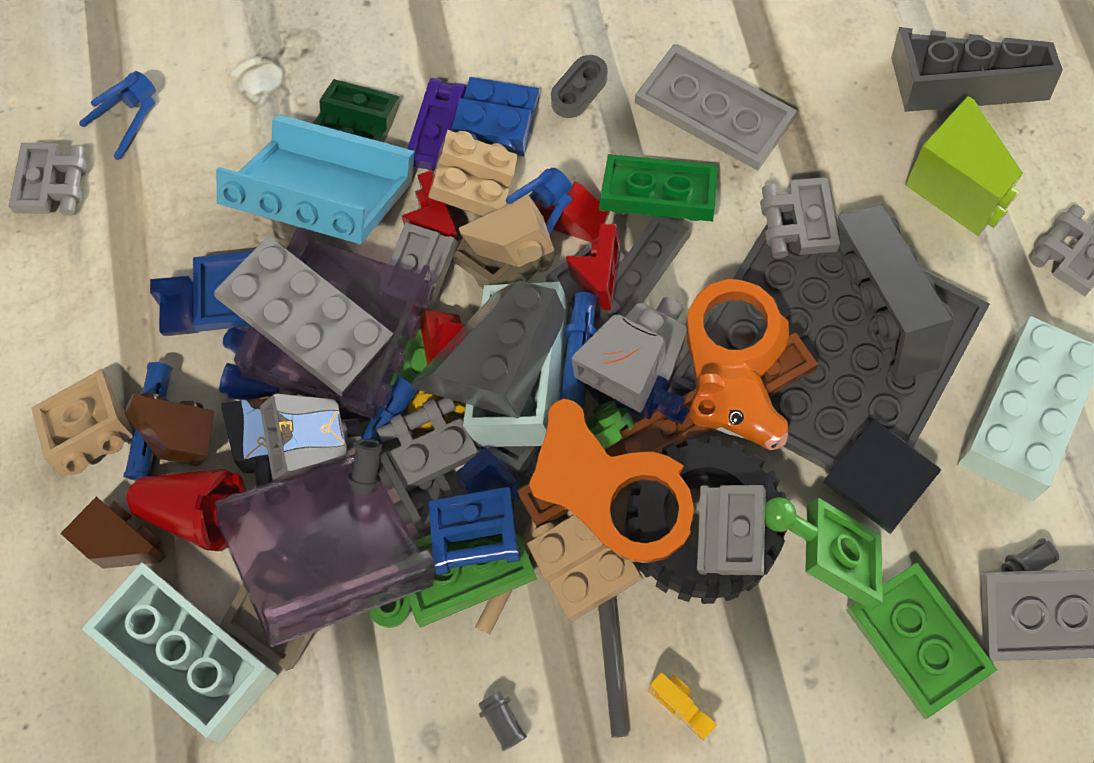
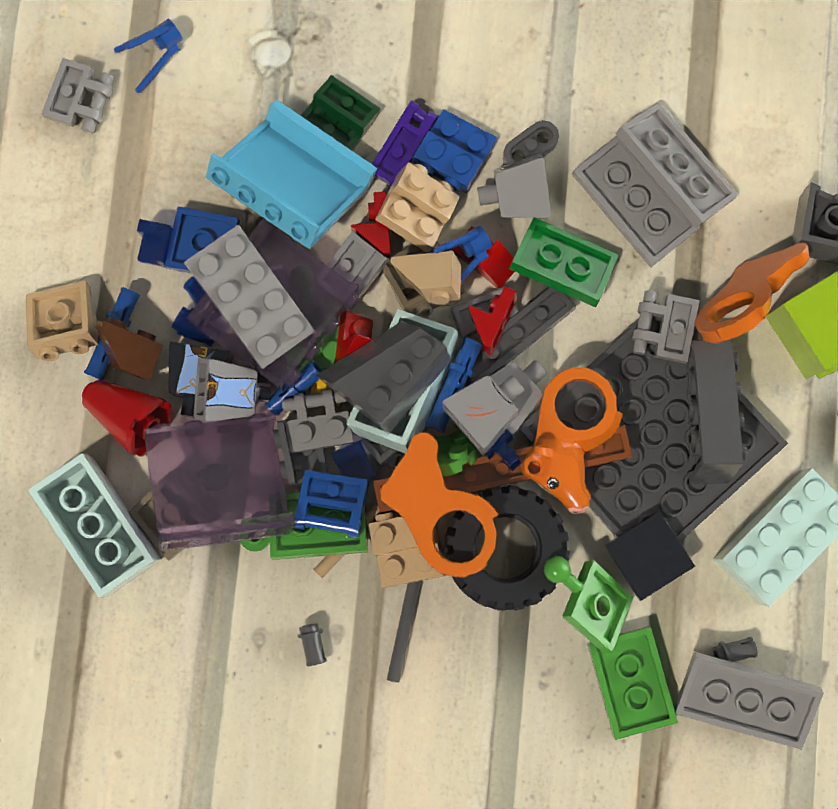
camera: 15 degrees right, 15 degrees up
(108, 539) = (61, 418): reddish brown slope -> none
(365, 468) = (263, 434): dark grey pin -> none
(582, 127) = (519, 189): none -> light grey torso
(675, 698) = (440, 668): yellow plate -> none
(732, 530) = (518, 571): light grey plate -> none
(746, 57) = (676, 164): none -> light grey plate
(880, 152) = (752, 286): none -> orange animal

